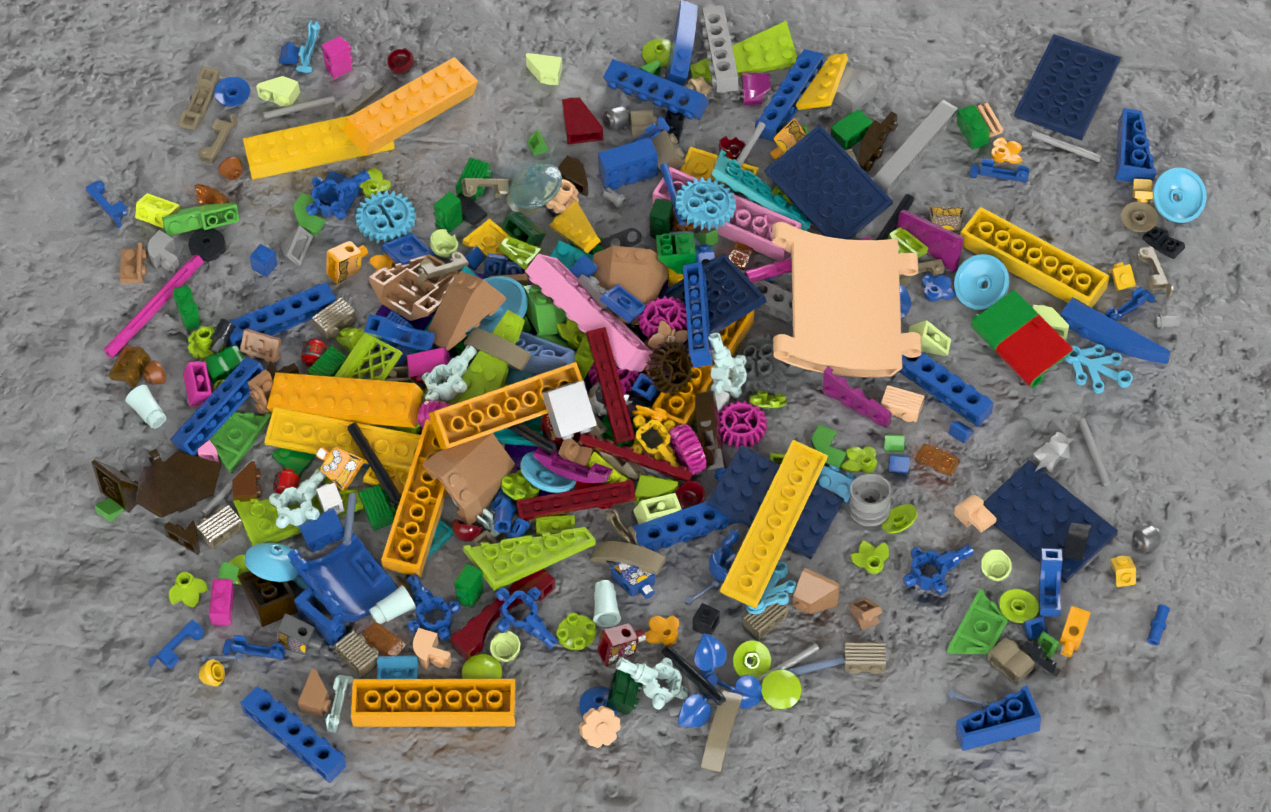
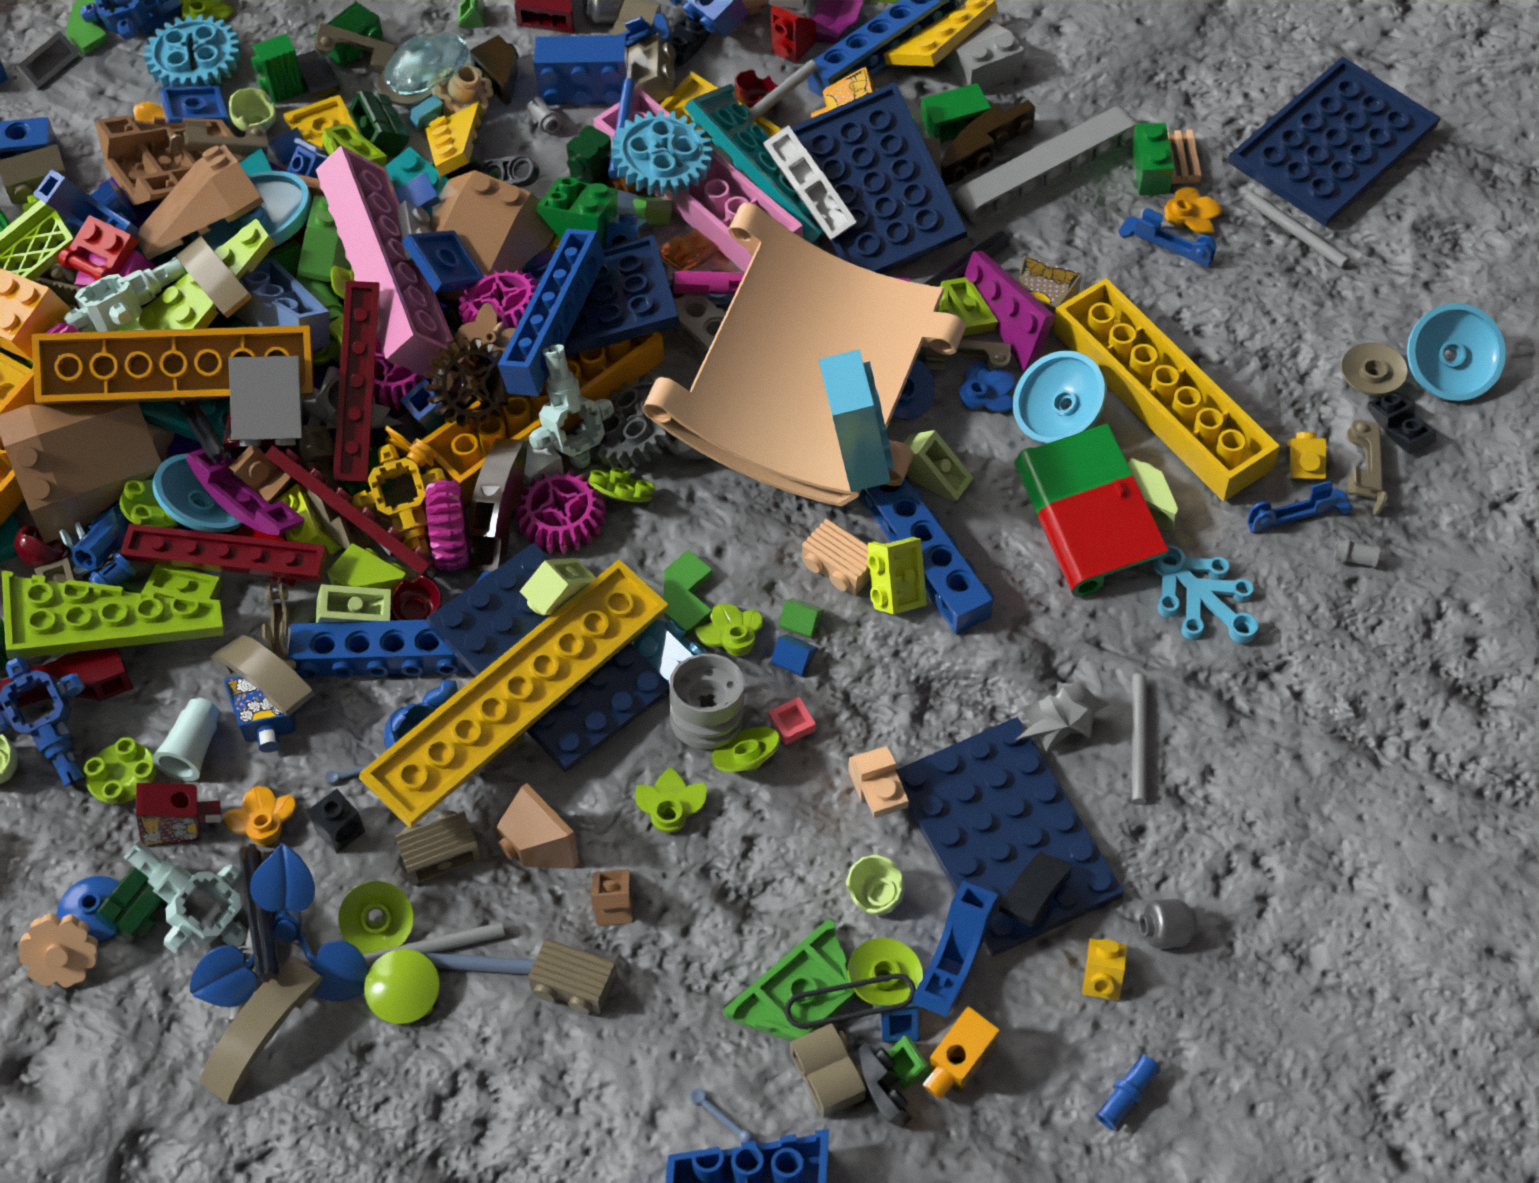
camera: 20 degrees right, 0 degrees up
(344, 261) = (94, 95): light orange torso -> none
(419, 347) = (101, 241): none -> plate
(547, 216) = (425, 113): none -> medium azure plate
(736, 107) = (791, 33): none -> red slope
(768, 464) = (555, 584): none -> yellowish green slope
(782, 597) = (502, 777): medium azure plant -> none
(794, 197) = (809, 183): none -> white slope
(854, 398) = (741, 499): magenta wing -> none
(895, 328) = (857, 419): none -> medium azure brick
(915, 496) = (792, 720): none -> coral plate
(937, 459) = (858, 668): clear orange slope -> none
(938, 404) = (897, 575): none -> neon yellow bracket
(943, 563) = (788, 850): blue piece -> none
(960, 431) = (921, 632): blue slope -> none
(1004, 617) = (852, 1015): none -> black piece
(1111, 334) = (1248, 545): blue slope -> none
(1133, 150) = (1403, 268): blue wedge -> none
(1142, 190) = (1396, 328): yellow bracket -> none

